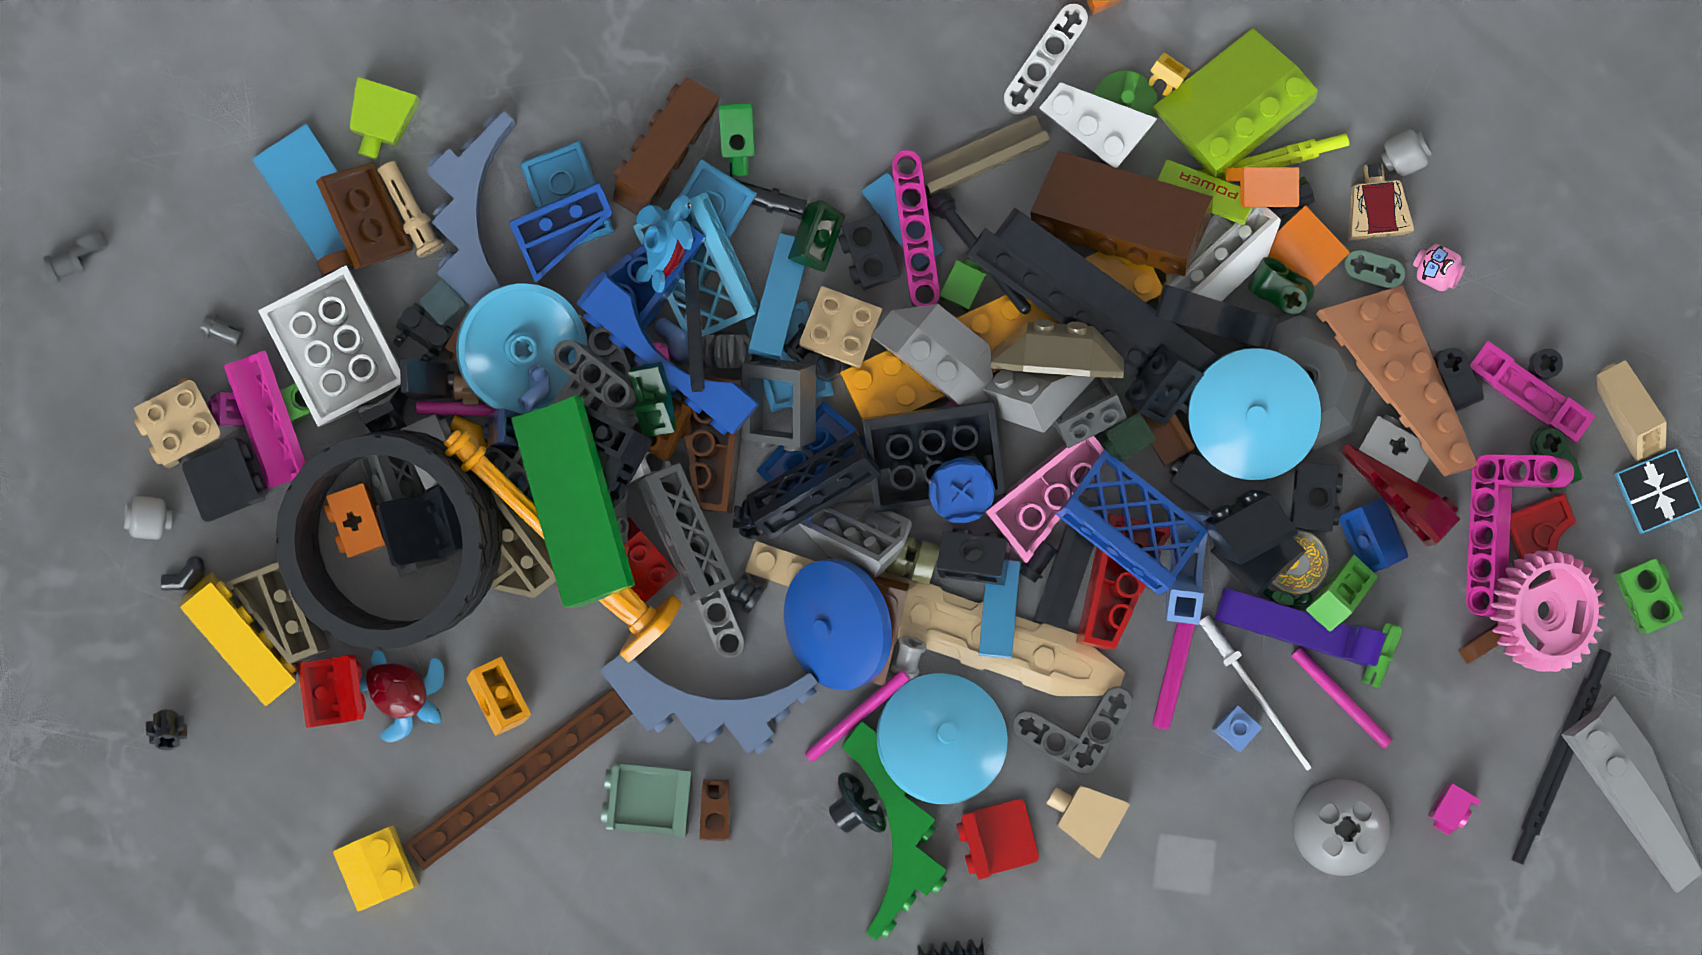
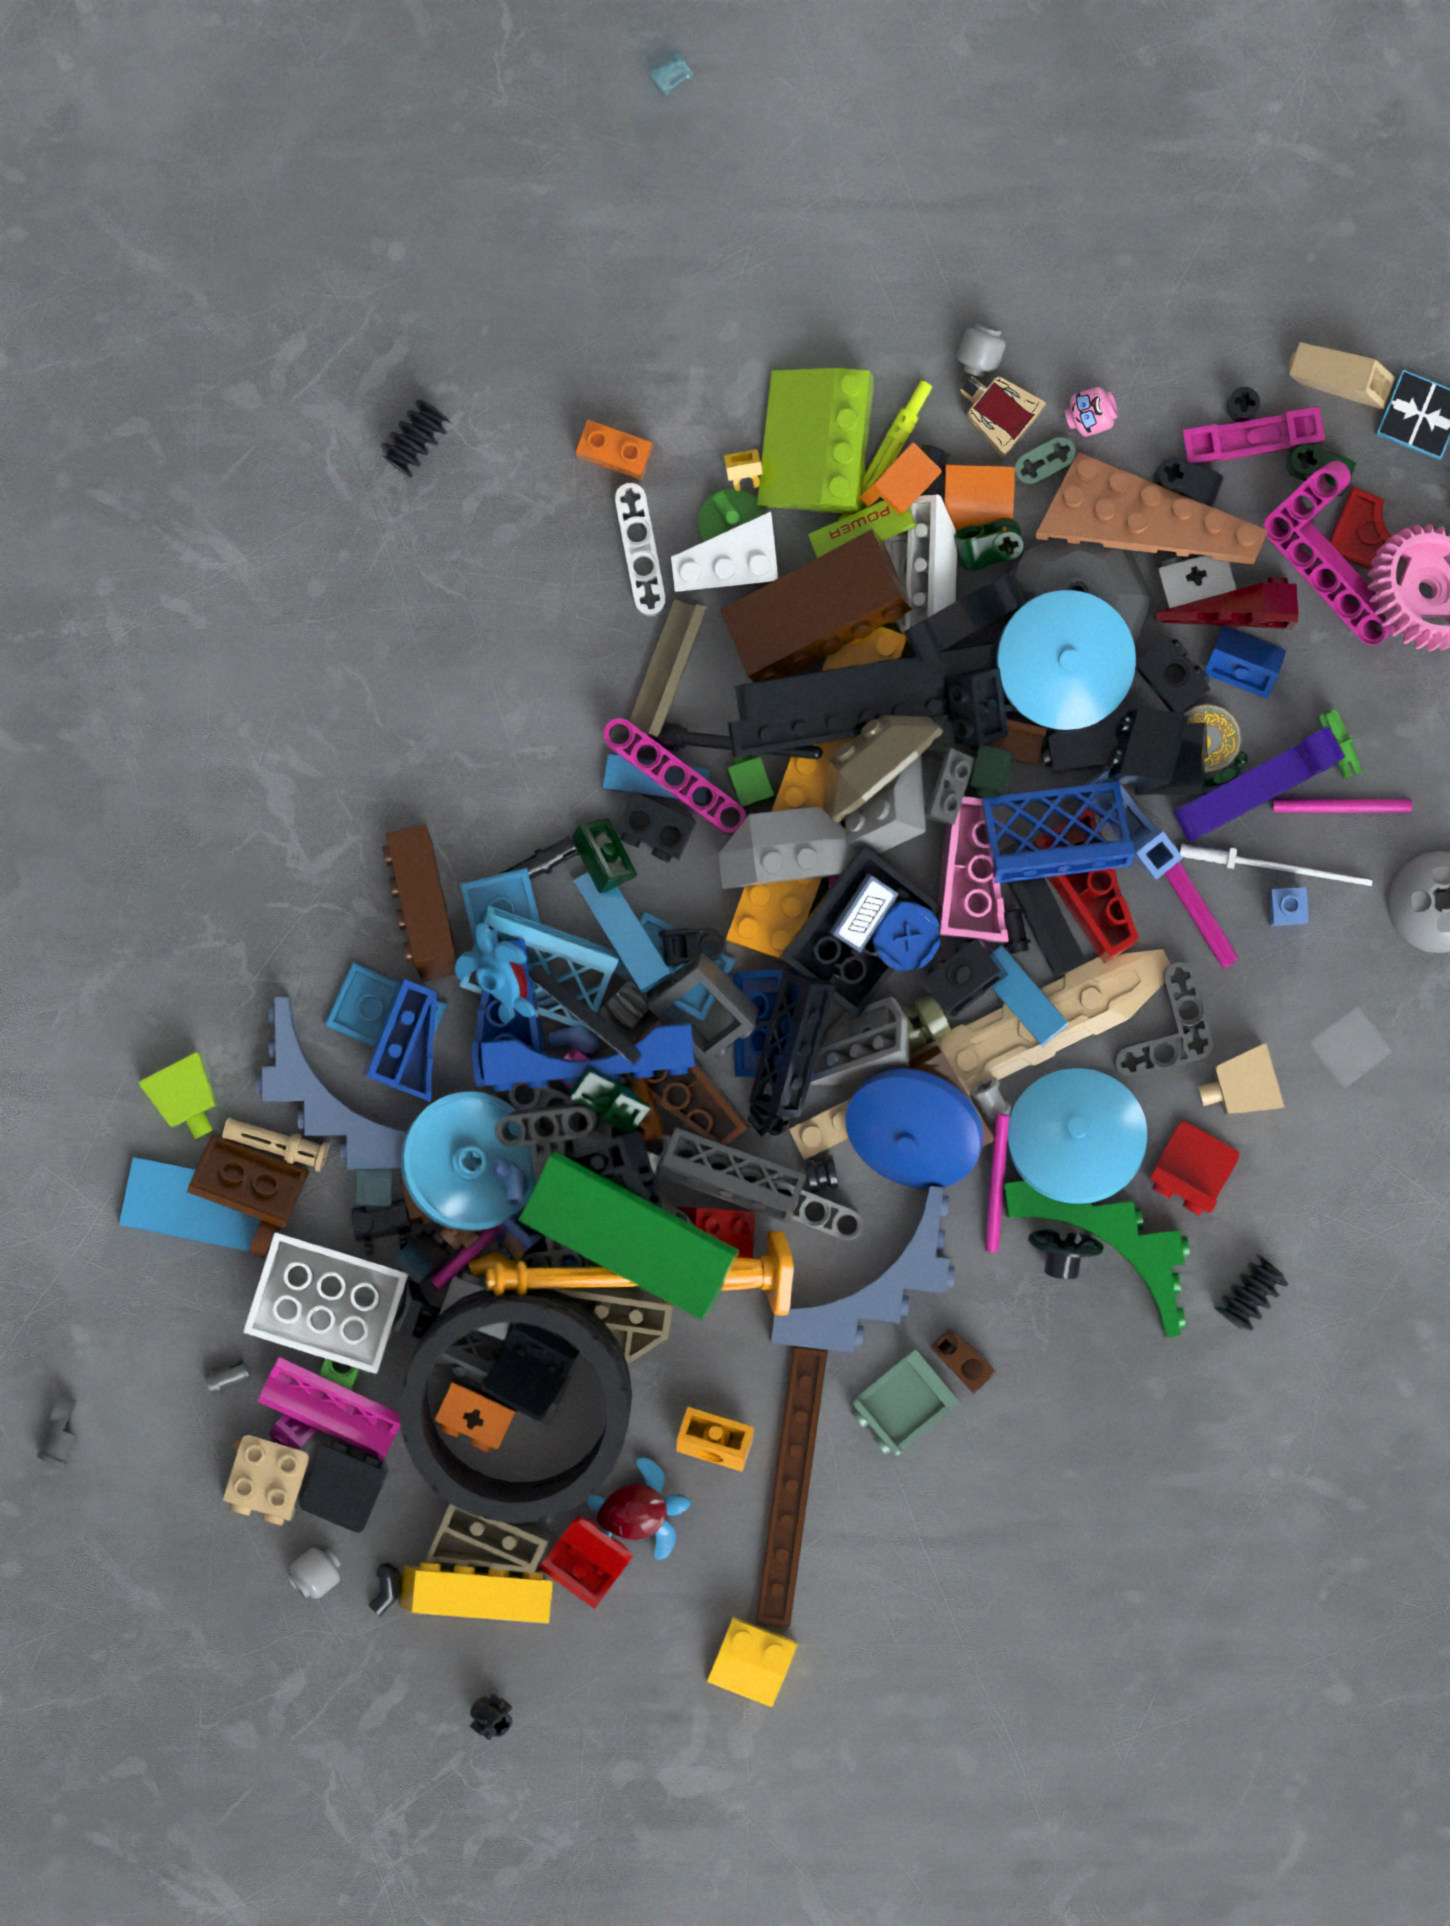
camera: 45 degrees left, 0 degrees up
(737, 119) = (457, 828): green torso -> none
(840, 327) = (692, 905): tan bracket -> none
(948, 446) = (863, 912): none -> tile
(1342, 593) = (1264, 727): bright green brick -> none
(1479, 645) = (1405, 663): reddish brown beam -> none

